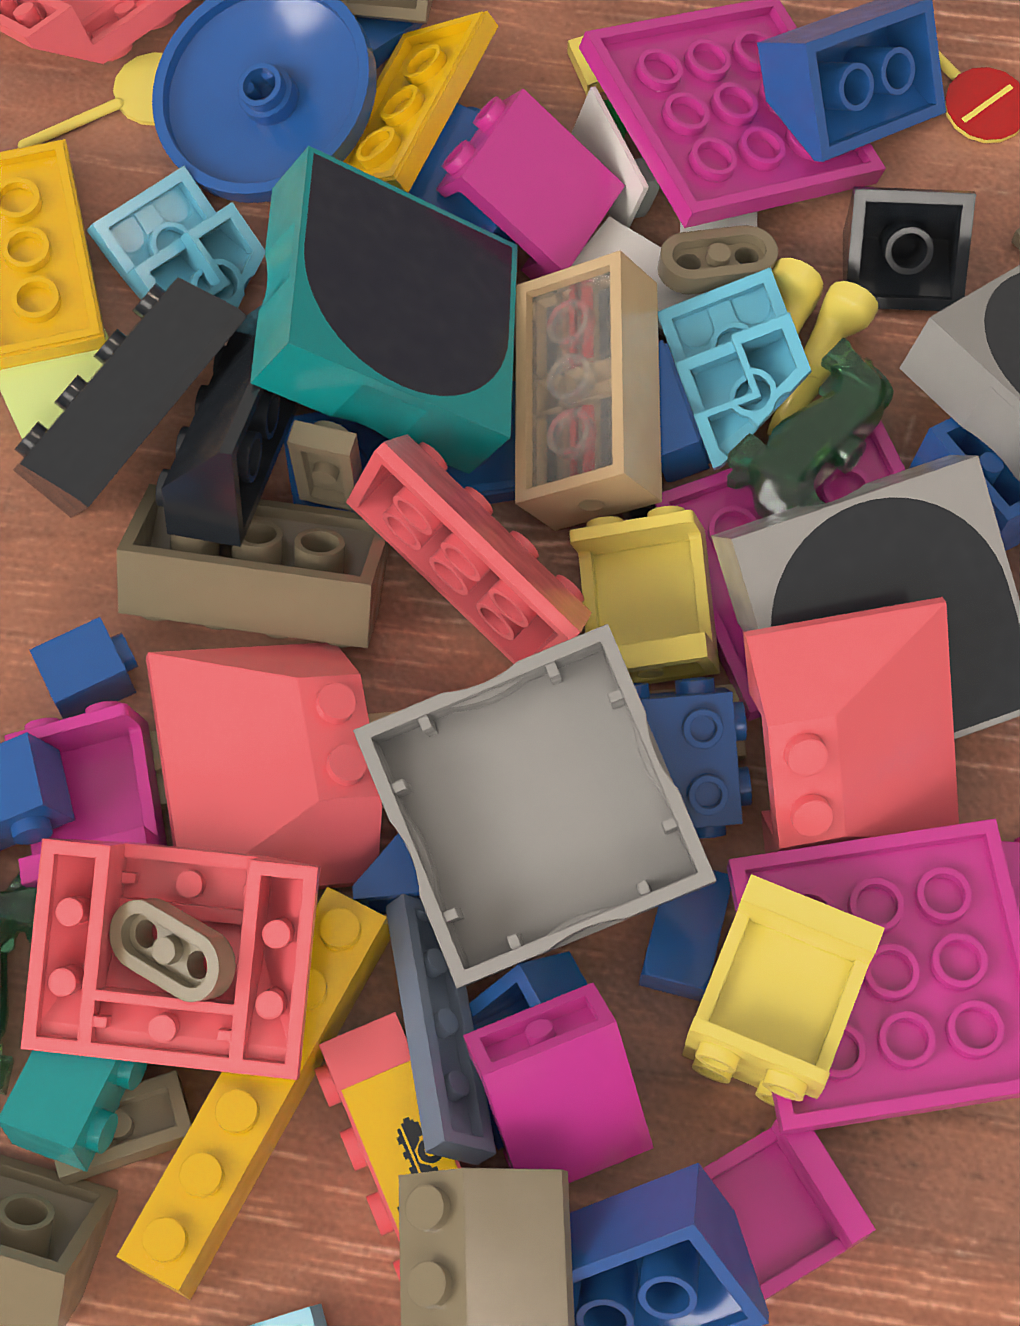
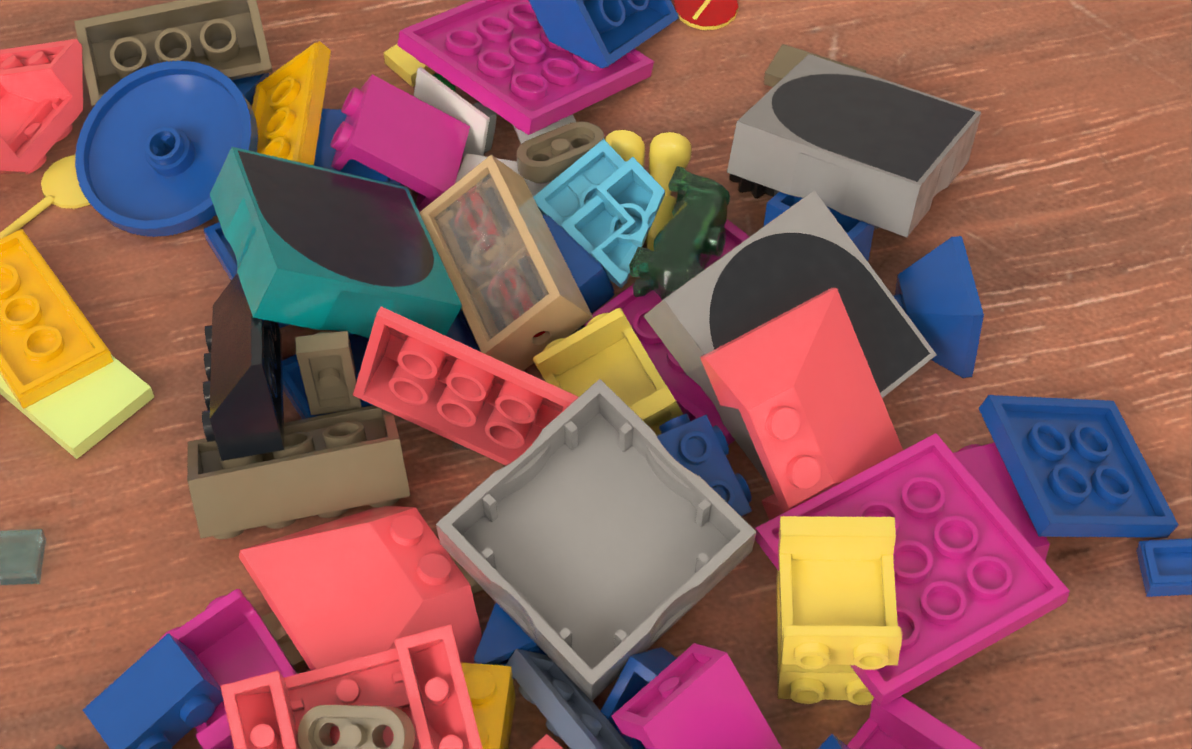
camera: 20 degrees left, 15 degrees down
(85, 667) = (187, 584): blue brick -> none
(127, 395) = (146, 382): black slope -> none
(179, 234) = (147, 284): medium azure slope -> none
(686, 941) = (745, 613): blue slope -> none
(909, 245) = (693, 98): black slope -> none

